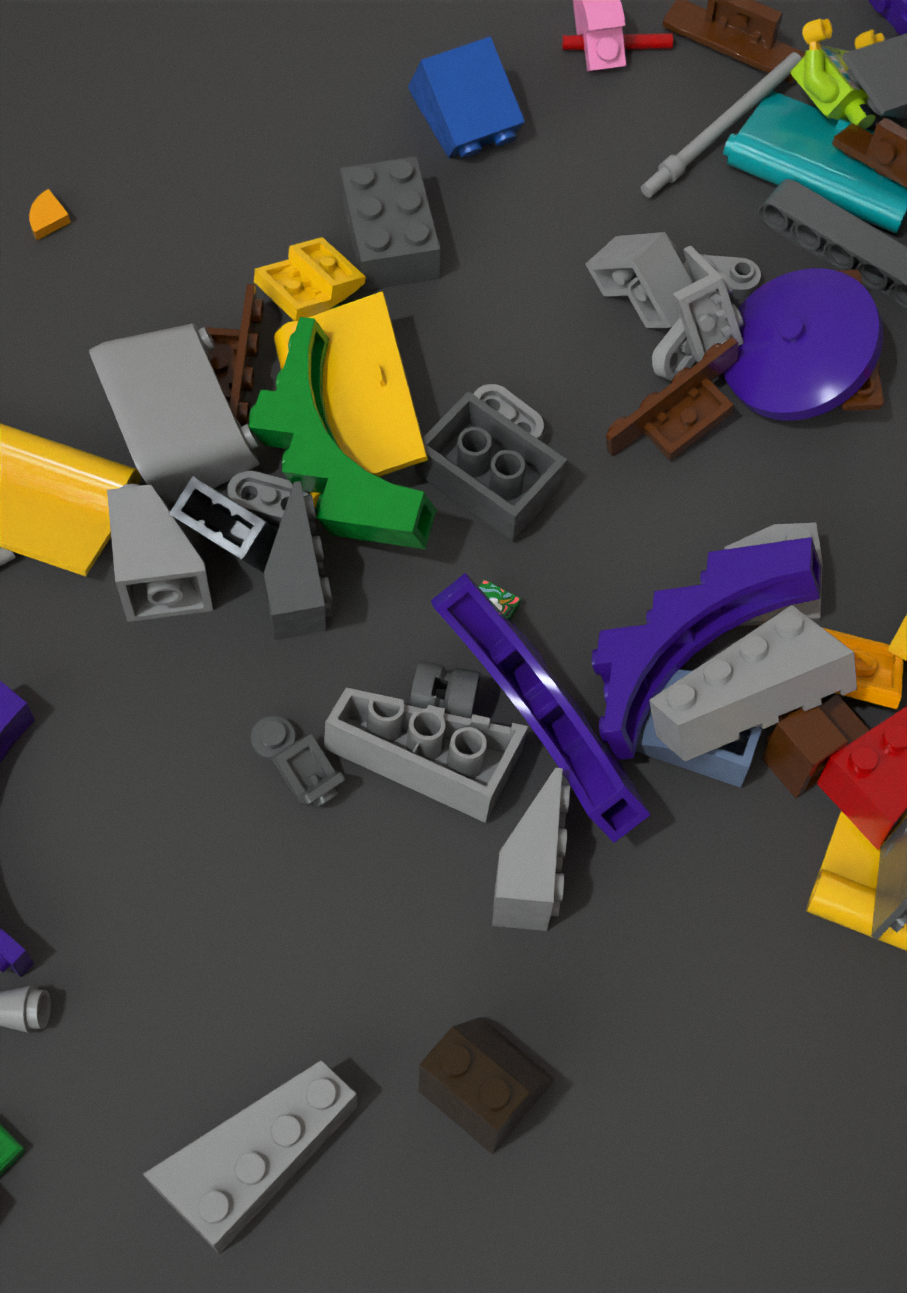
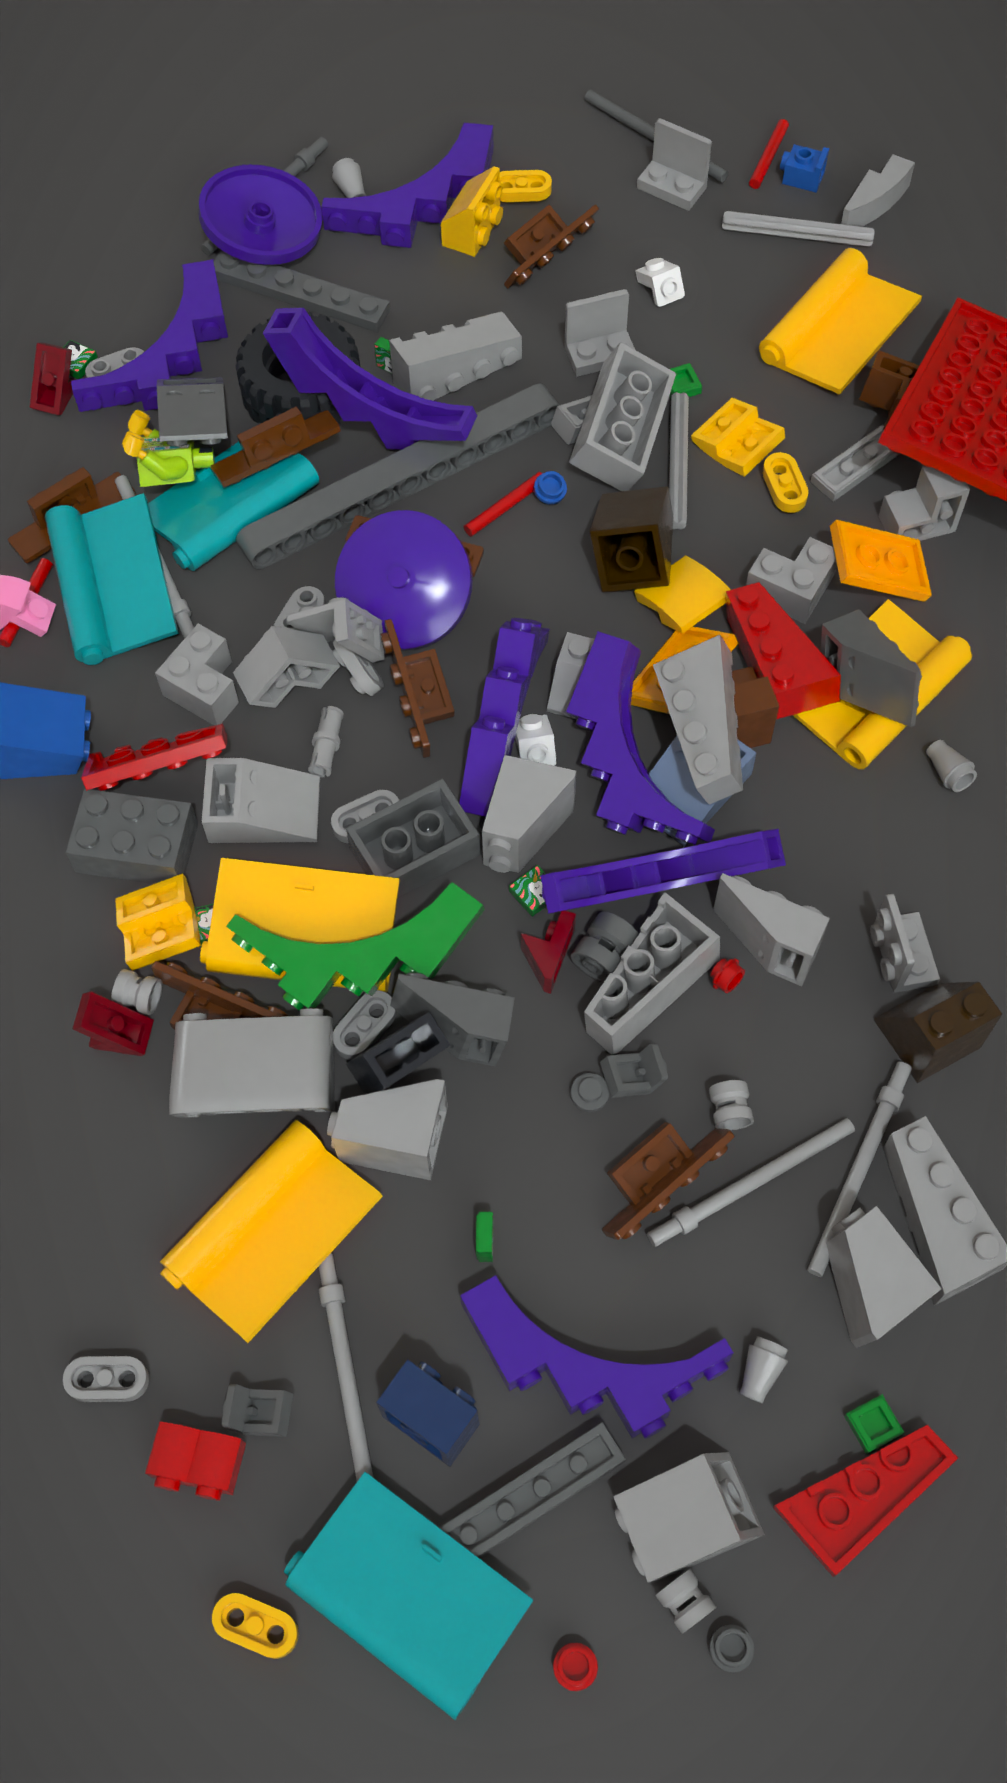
camera: 65 degrees left, 0 degrees up
(73, 686) = (484, 1236): none -> green tile
(142, 1089) = (875, 1275): none -> light grey slope
(162, 882) = (687, 1218): none -> light grey bar
(182, 280) = (112, 1025): none -> dark red slope
(204, 830) = (656, 1171): none -> reddish brown bracket
(227, 288) = (137, 992): none -> light grey wheel
(307, 884) = (731, 1104): none -> light grey wheel
(379, 1060) = (889, 1102): none -> light grey bar
(408, 644) = (548, 955): none -> dark red slope
(466, 835) = (727, 974): none -> red plate
(472, 192) = (157, 753): none -> red wing
(476, 313) = (259, 802): none -> light grey slope
(566, 555) = (525, 811): none -> light grey slope
(578, 1019) = (904, 948): none -> light grey bracket
(579, 350) = (326, 741): none -> light grey pin
(598, 204) = (195, 676): none -> light grey brick
(671, 544) = (536, 739): none -> white bracket
(674, 92) = (110, 578): none -> teal door
(693, 479) = (501, 707): none -> dark purple arch
(854, 1013) = (951, 766): none -> light grey cone

